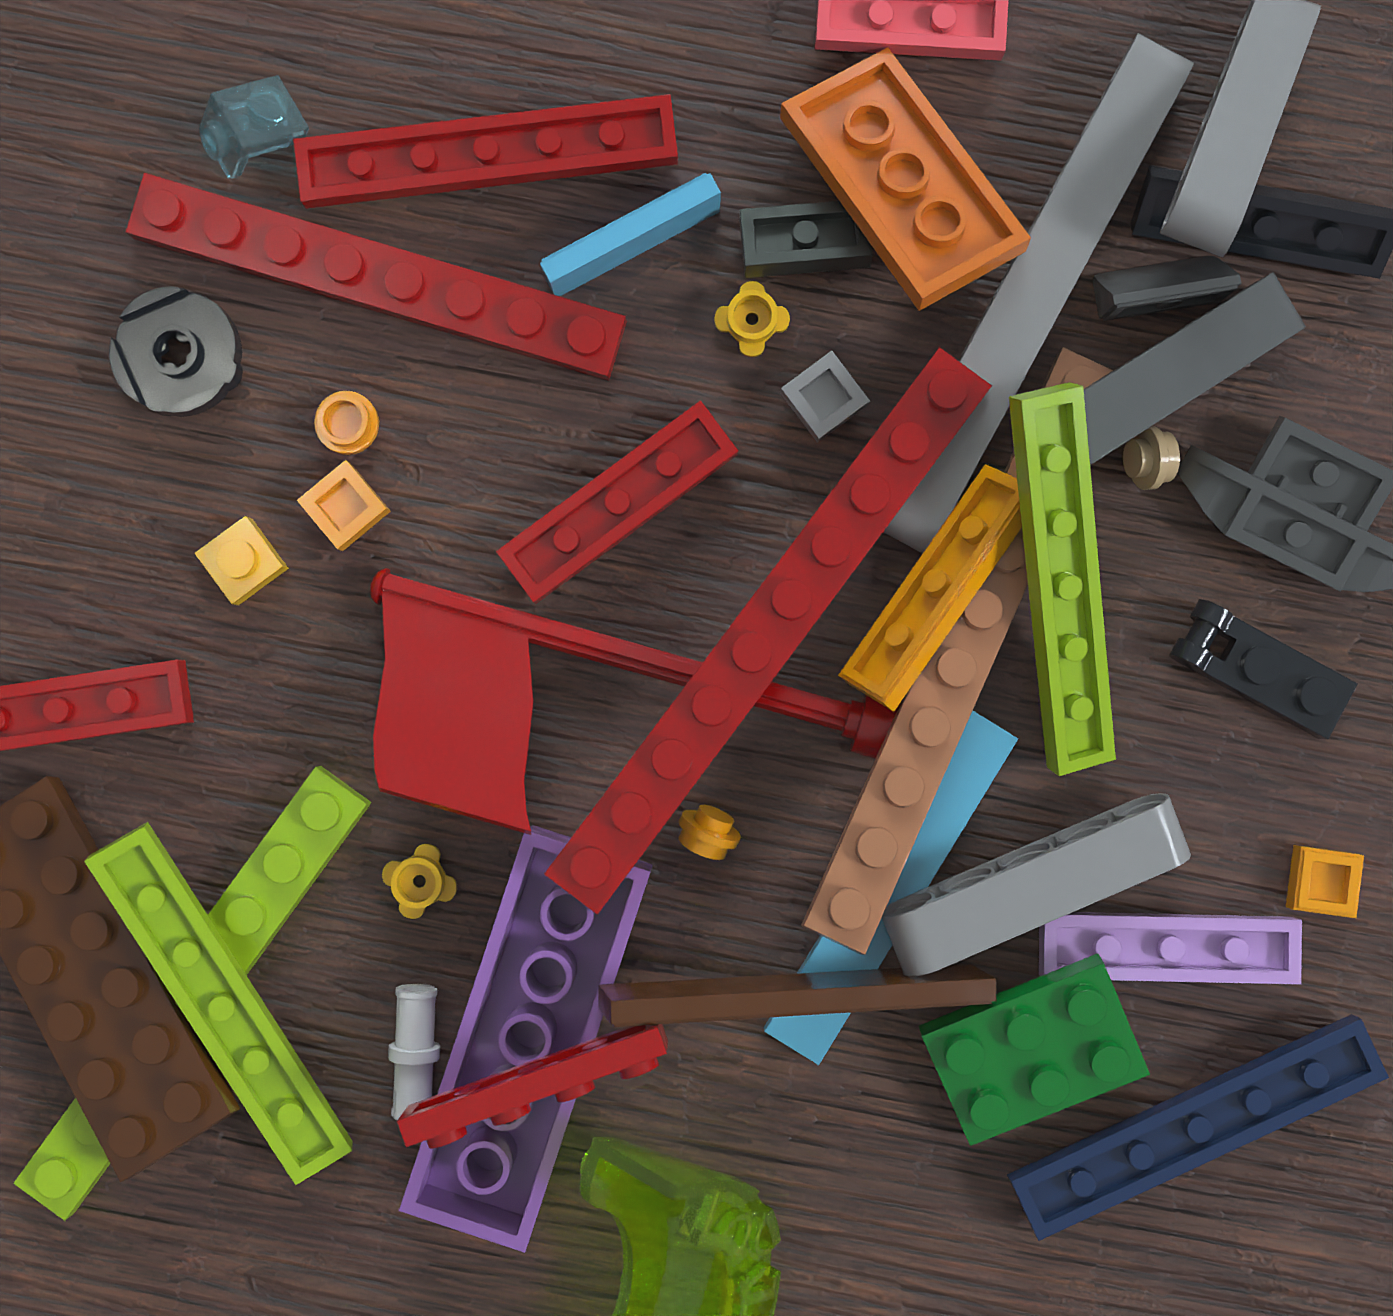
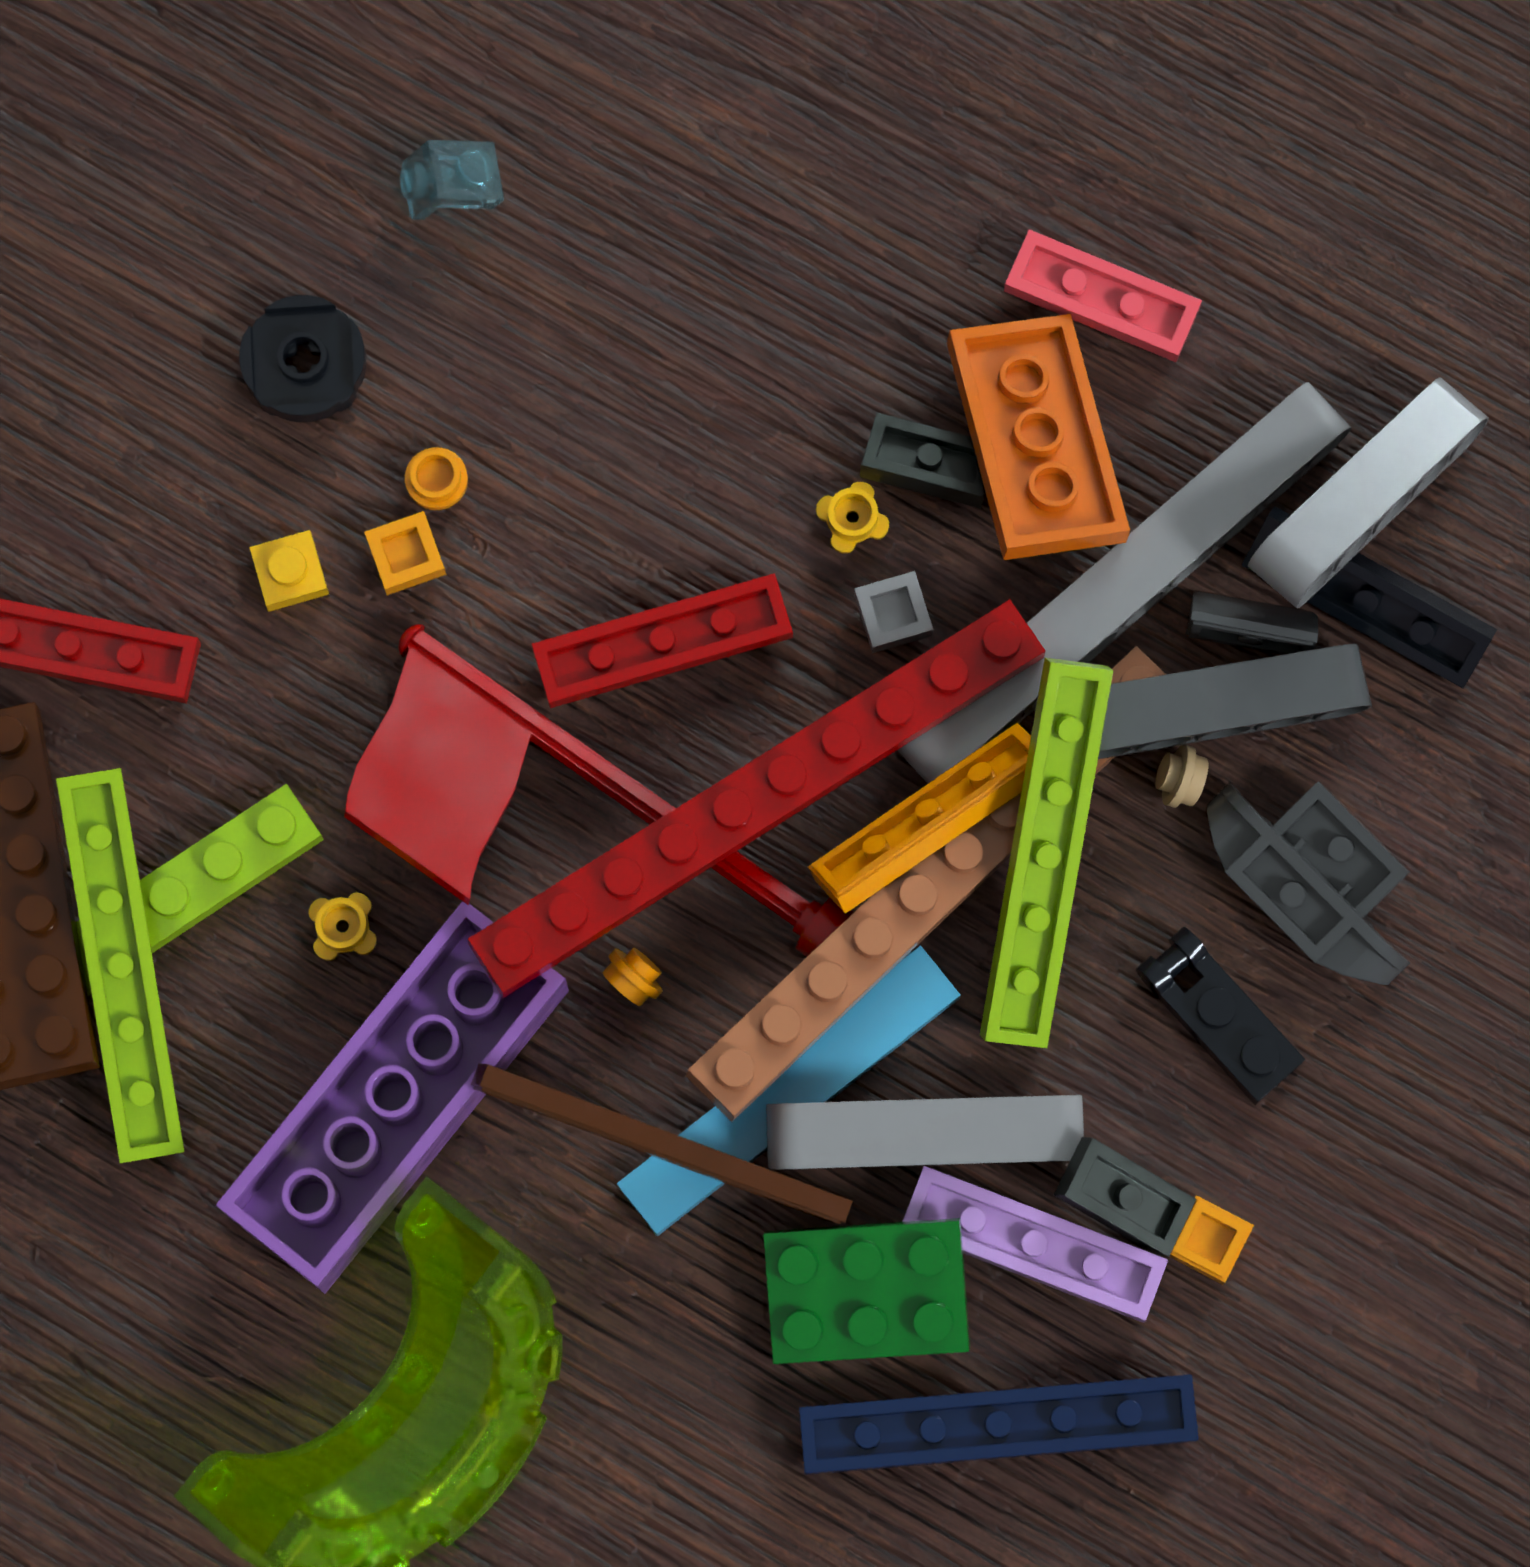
camera: 20 degrees right, 10 degrees down
(376, 276) = (517, 357): red plate -> none
(413, 1045) = (277, 1081): white pin -> none
(486, 151) = (661, 278): red plate -> none
(509, 1092) = (359, 1124): red plate -> none
(631, 234) = (766, 401): medium azure tile -> none
(1242, 877) = (1125, 1197): none -> pearl dark grey plate

